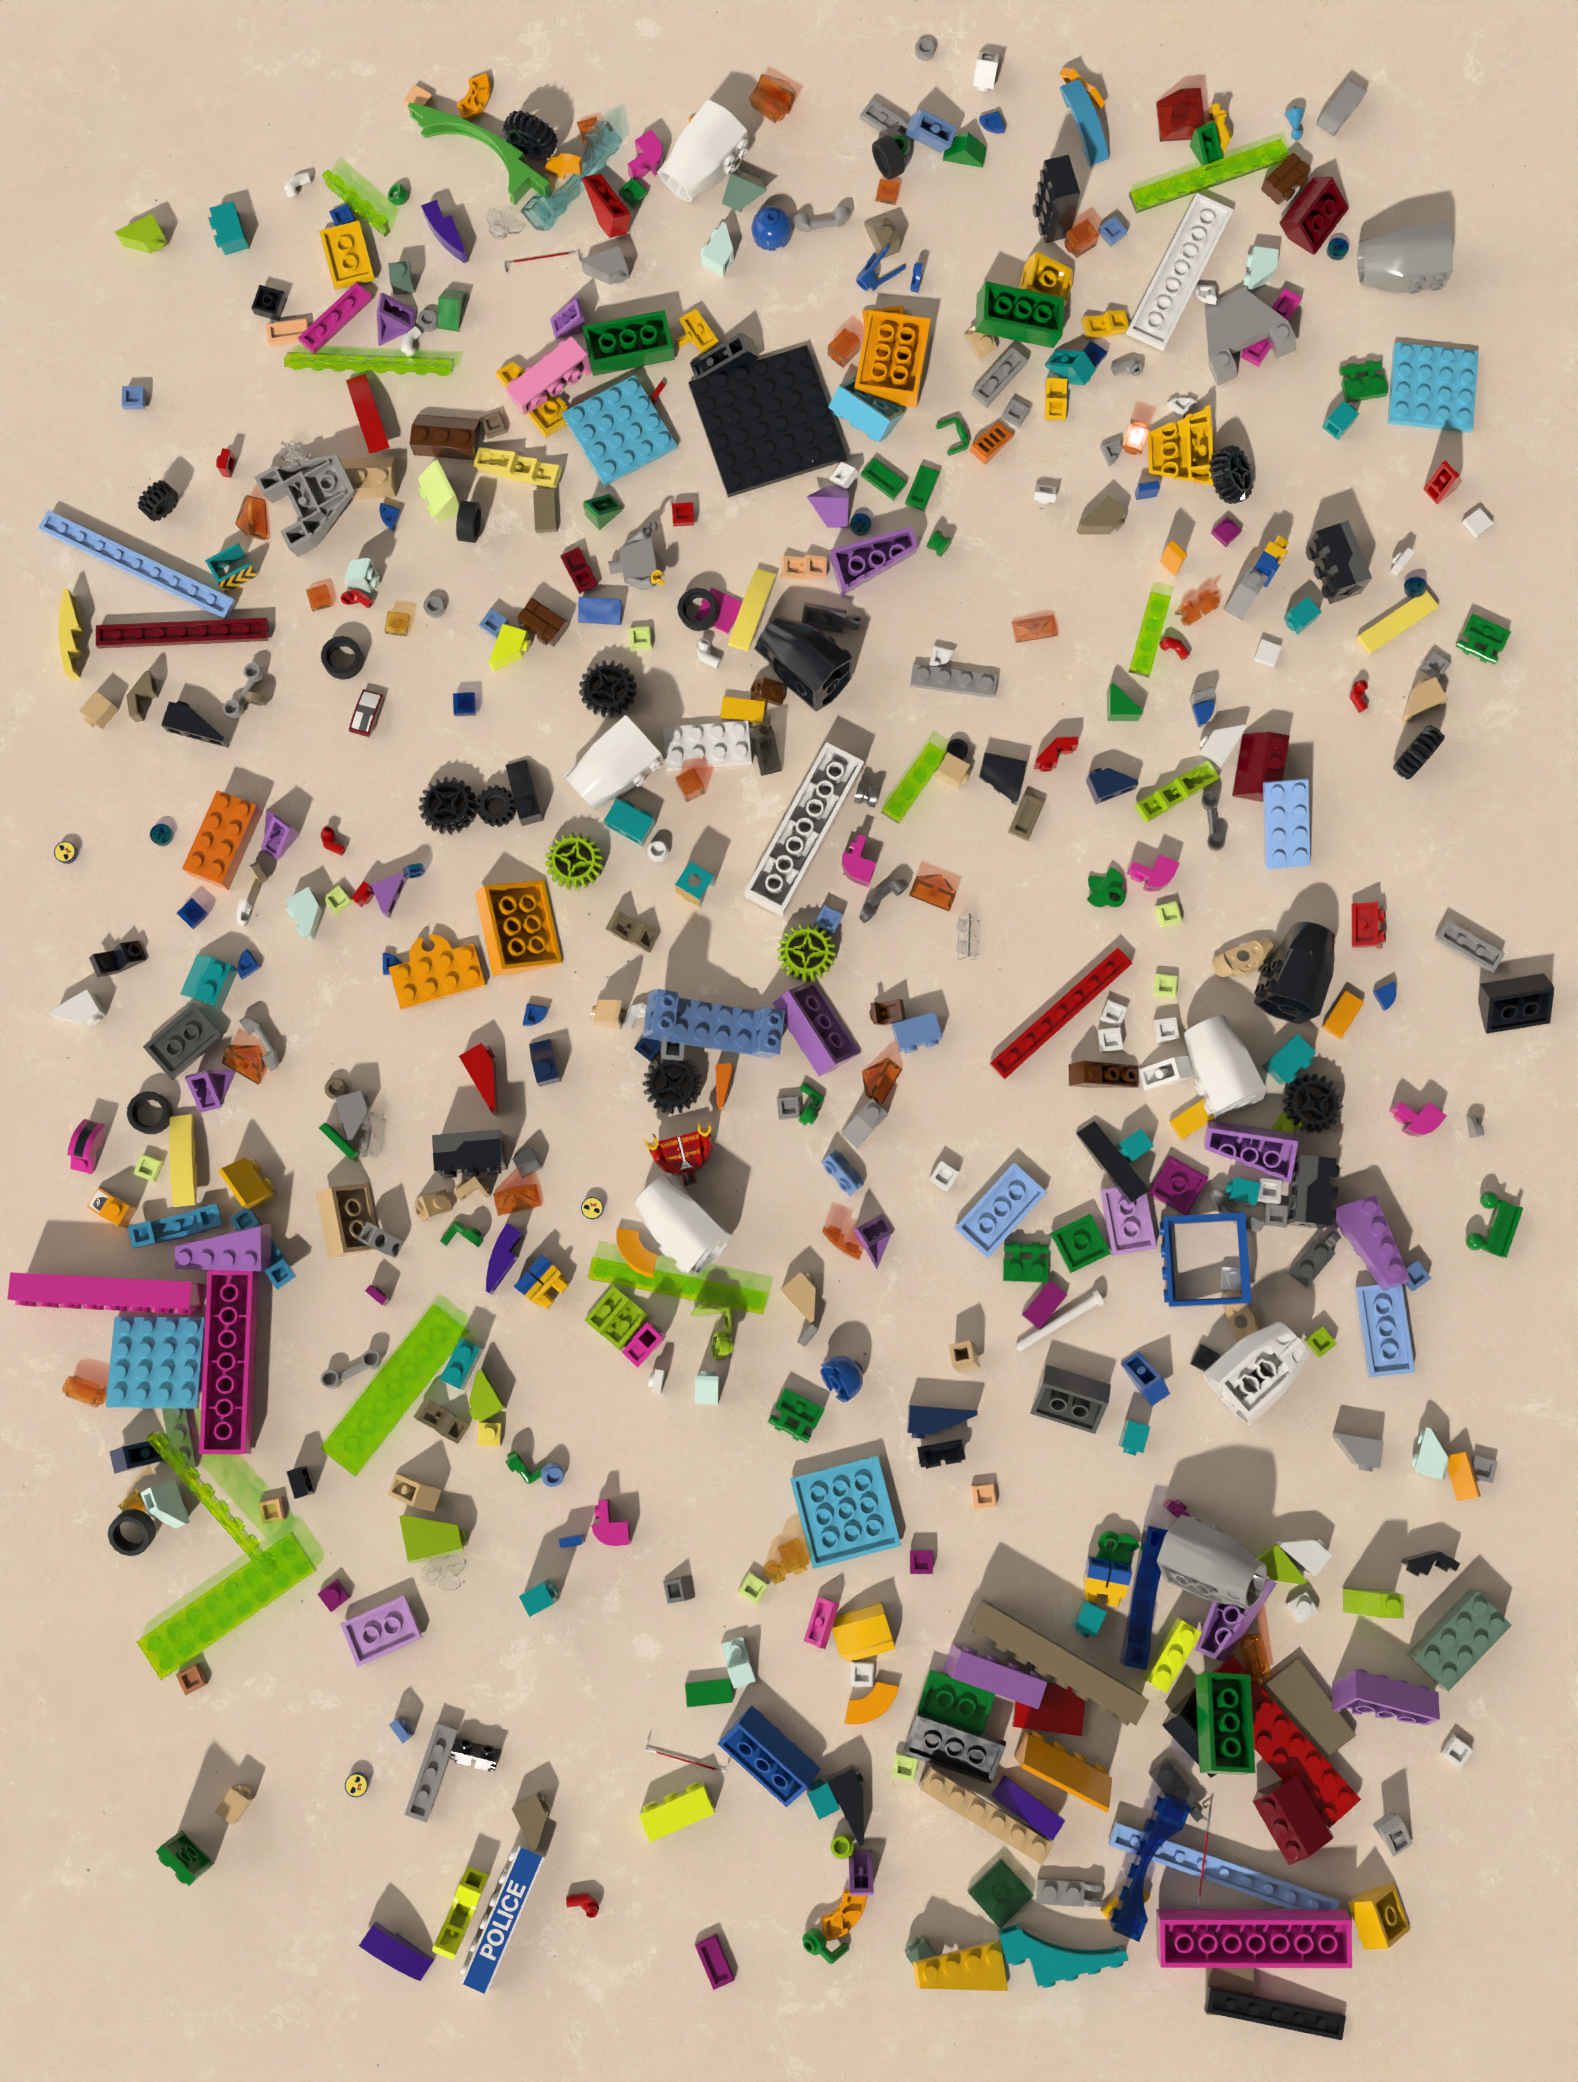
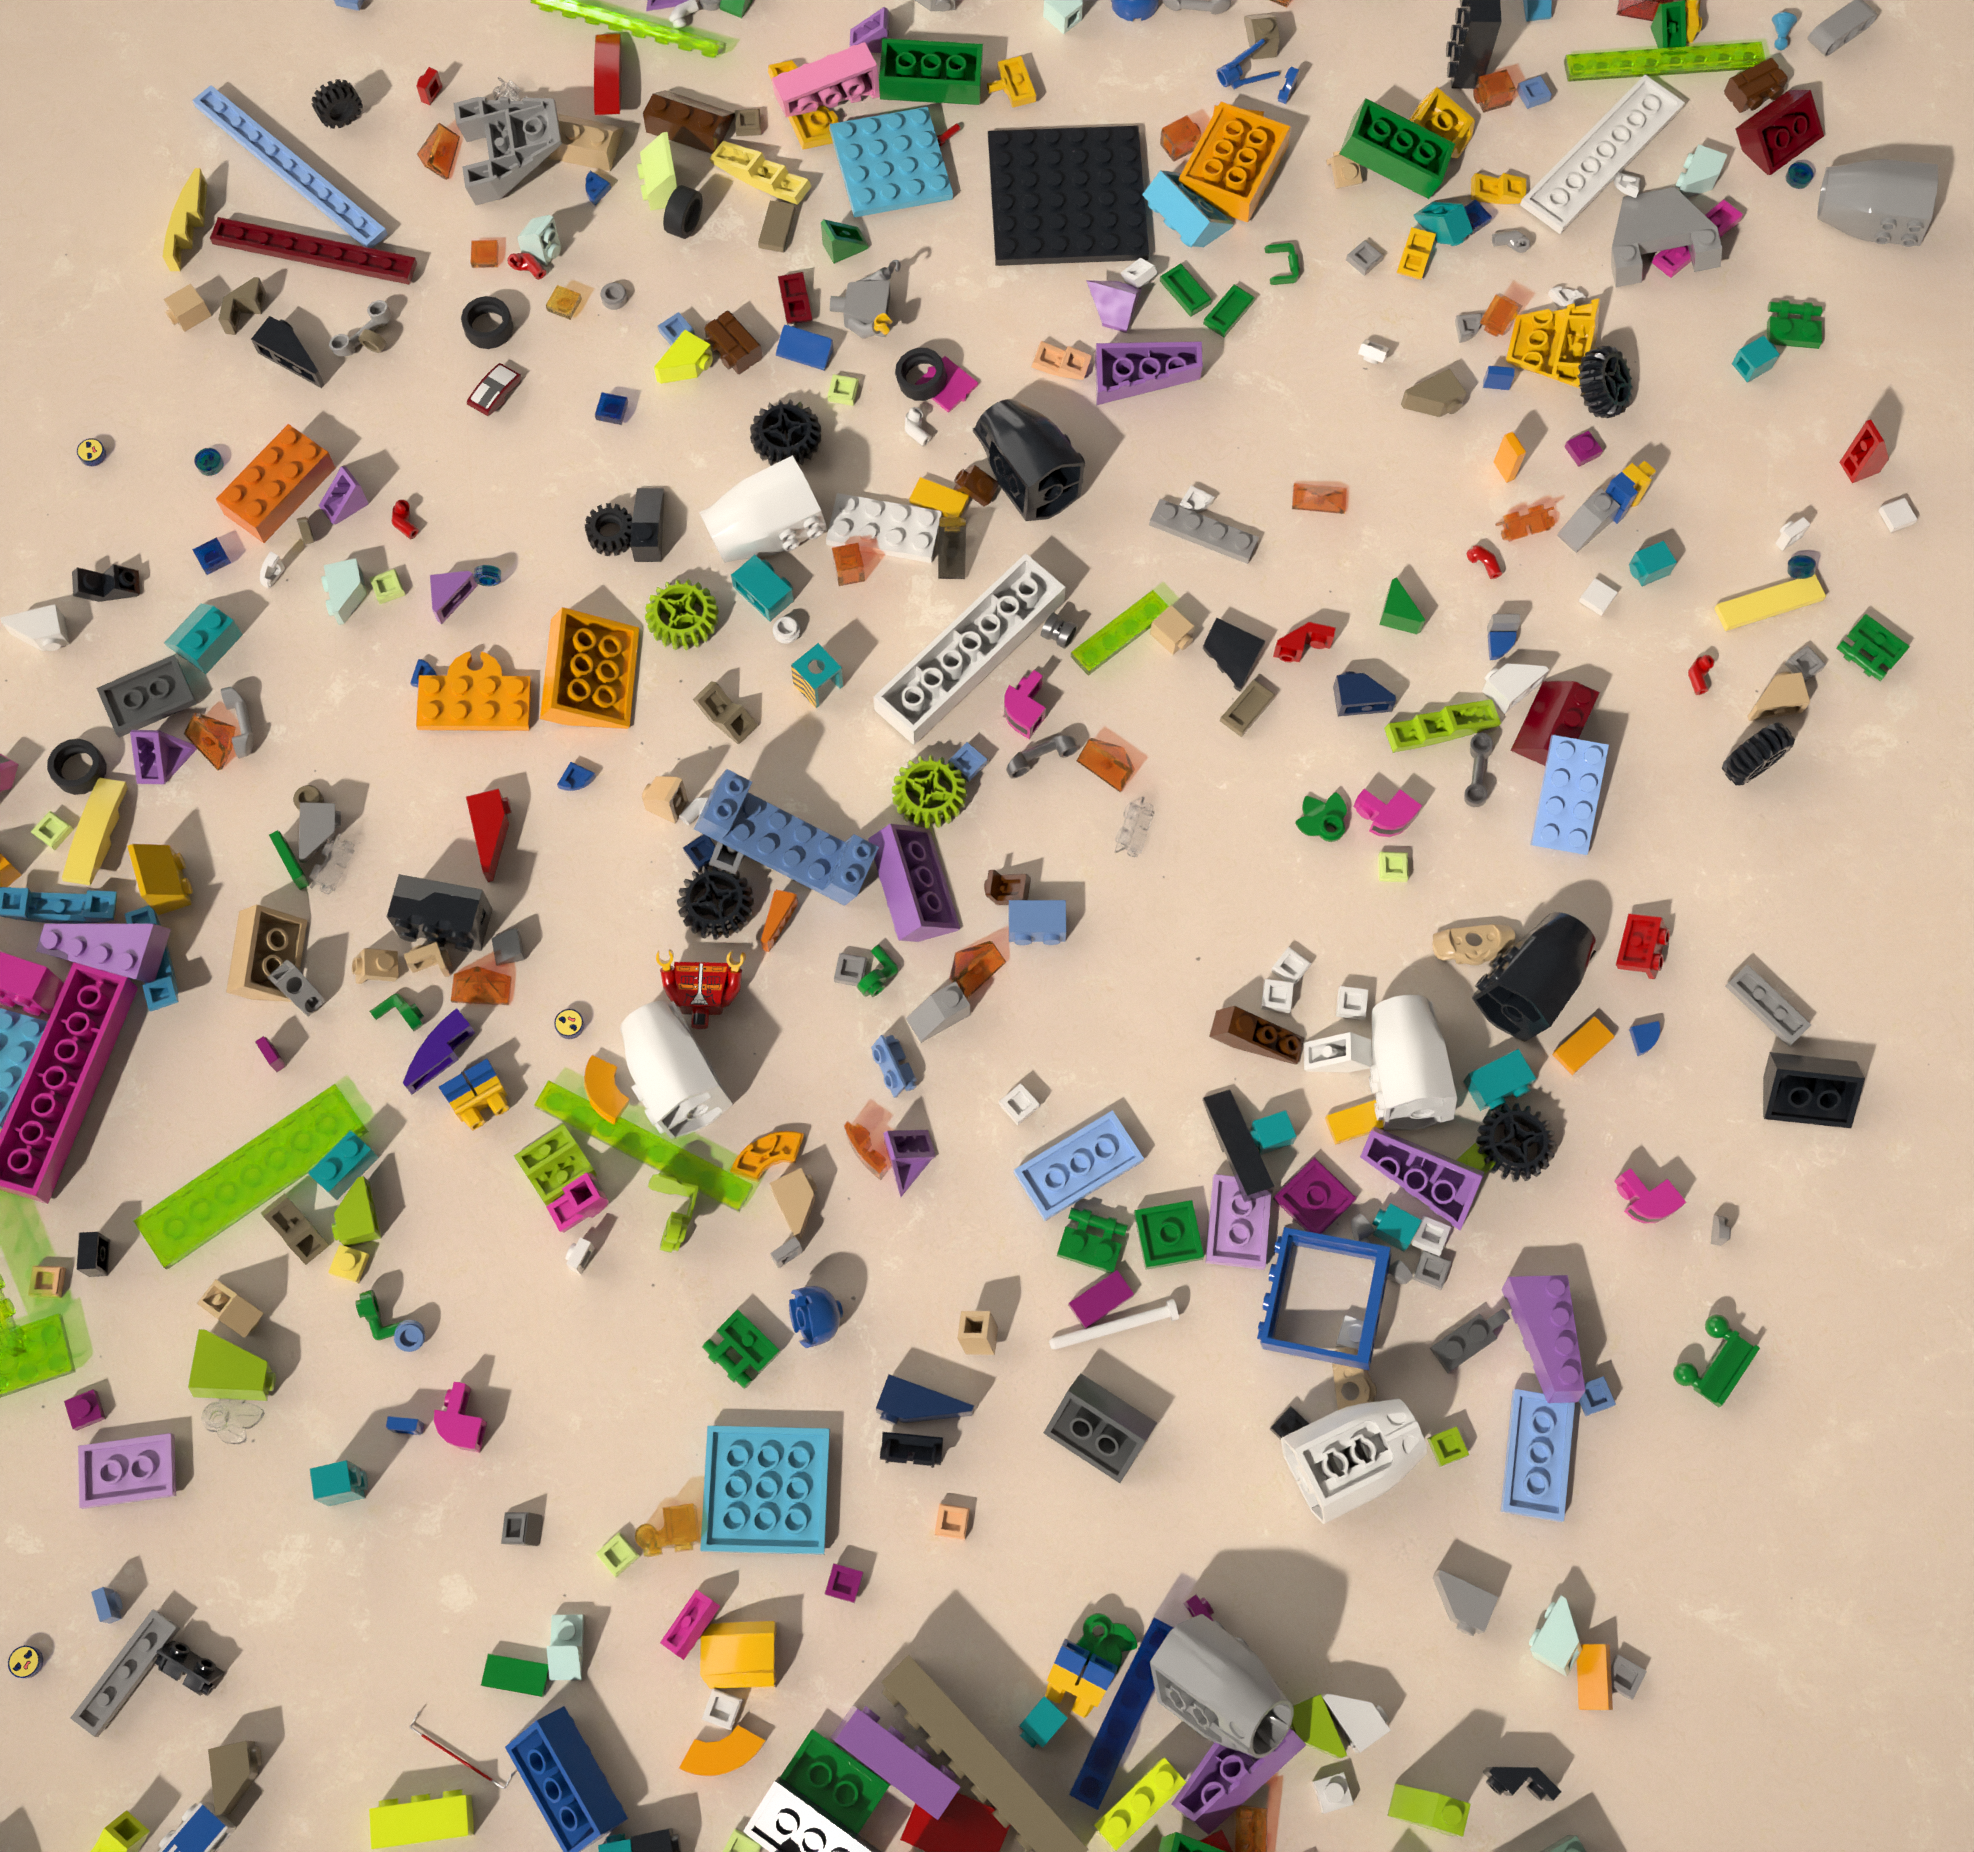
camera: 15 degrees right, 10 degrees down
(226, 558) = (390, 184): teal piece -> none
(247, 964) = (254, 631): blue tile -> none
(332, 1380) = (179, 1141): light grey bar -> none
(363, 894) = (417, 586): red plate -> none
(442, 811) = (542, 525): black gear -> none
(544, 1063) = (567, 837): dark blue slope -> none
(683, 514) = (936, 268): red plate -> none
(707, 1388) = (637, 1279): light aqua slope -> none
(728, 355) = (1046, 111): black slope -> none
(752, 610) = (984, 390): light yellow slope -> none
(769, 1264) = (766, 1152): none -> light orange tile
(829, 618) = (1074, 422): dark grey plate -> none
(860, 524) = (1143, 331): tile -> none
(939, 543) = (1230, 373): green wheel -> none
(957, 748) = (1187, 607): black tile -> none
(985, 456) = (1314, 294): orange slope -> none
(999, 377) = (1355, 213): light grey plate -> none
(1061, 1013) = (1223, 947): red plate -> none
(1133, 1437) = (1168, 1500): teal brick -> none
(1145, 1378) = (1205, 1429): blue slope -> none
(1149, 634) = (1457, 538): clear neon green plate -> none
(1165, 985) = (1365, 950): yellowish green tile -> none
(1312, 1192) = (1486, 1249): piece -> none
(1338, 562) = (1712, 512): black piece -> none
(1433, 387) = (1878, 352): medium azure plate -> none

